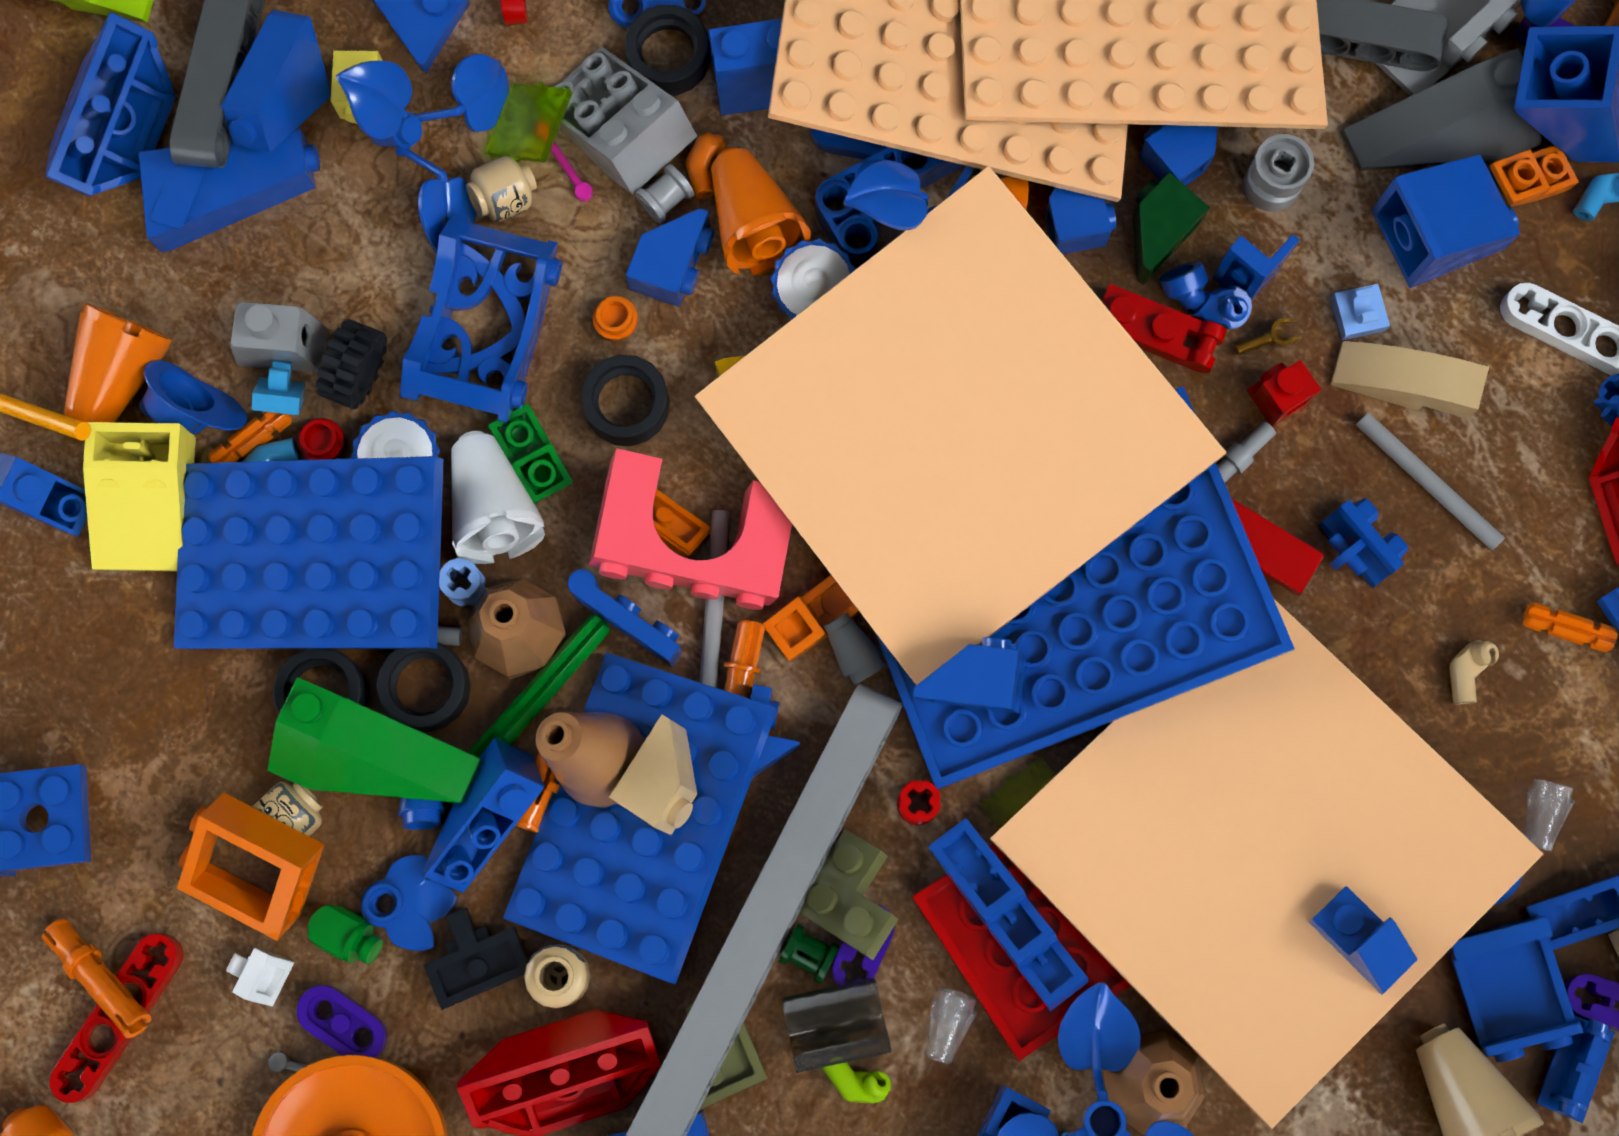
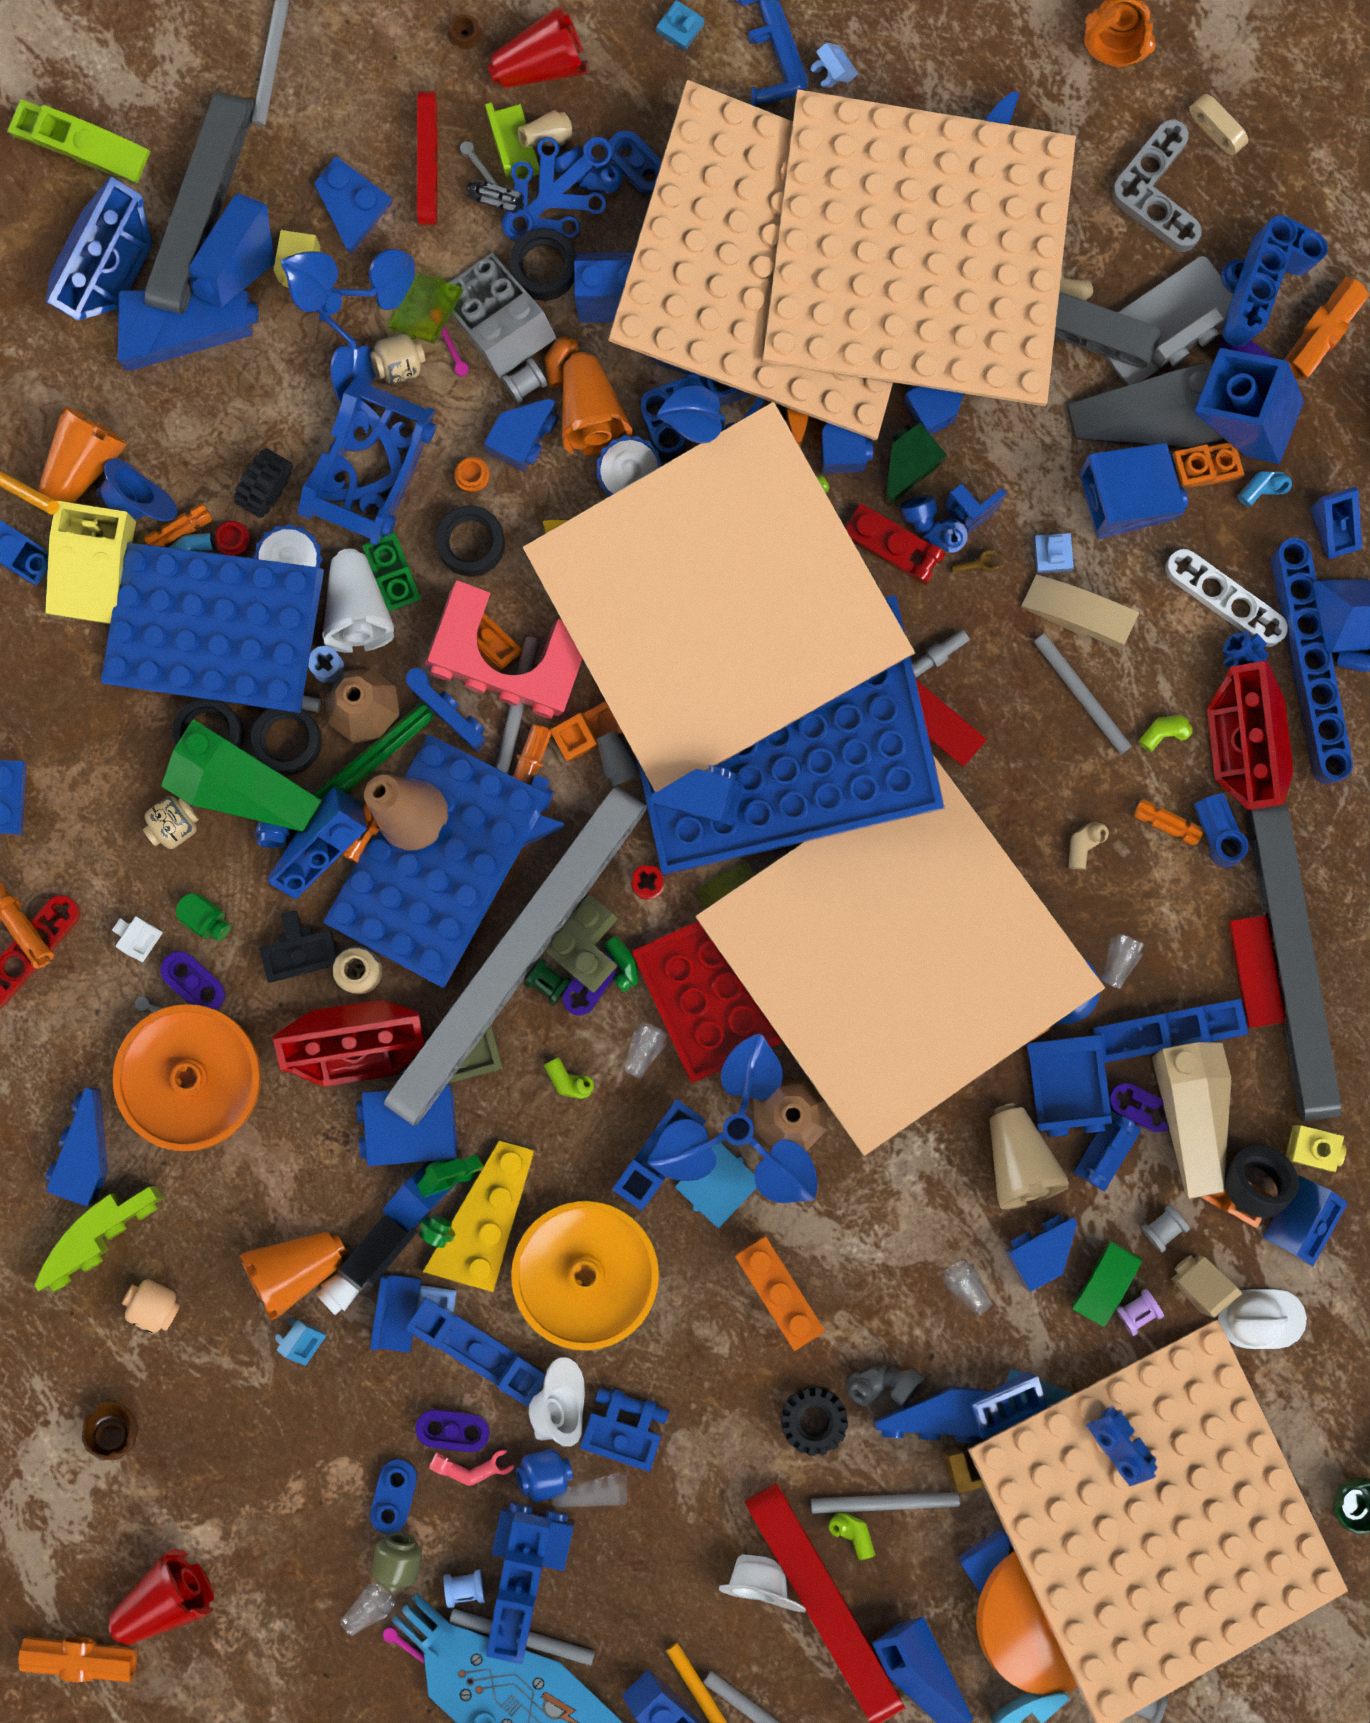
camera: 10 degrees right, 5 degrees up
(263, 837) = (155, 837): orange window -> none
(275, 333) = (206, 454): light grey torso -> none
(278, 392) = (204, 496): dark azure tile -> none
(415, 903) = (258, 903): blue plate -> none
(660, 779) = (453, 835): tan slope -> none
(836, 1025) = (559, 1036): clear smoke panel -> none
(906, 911) = (625, 960): none -> green arm
(1008, 914) = (699, 974): blue slope -> none
(1278, 172) = (1006, 434): light grey wheel -> none
(1284, 391) = (980, 608): red brick -> none
(1361, 544) = (1016, 735): blue hips -> none
(1364, 940) = (958, 1030): blue slope -> none
(1541, 507) = (1165, 727): none -> lime arm

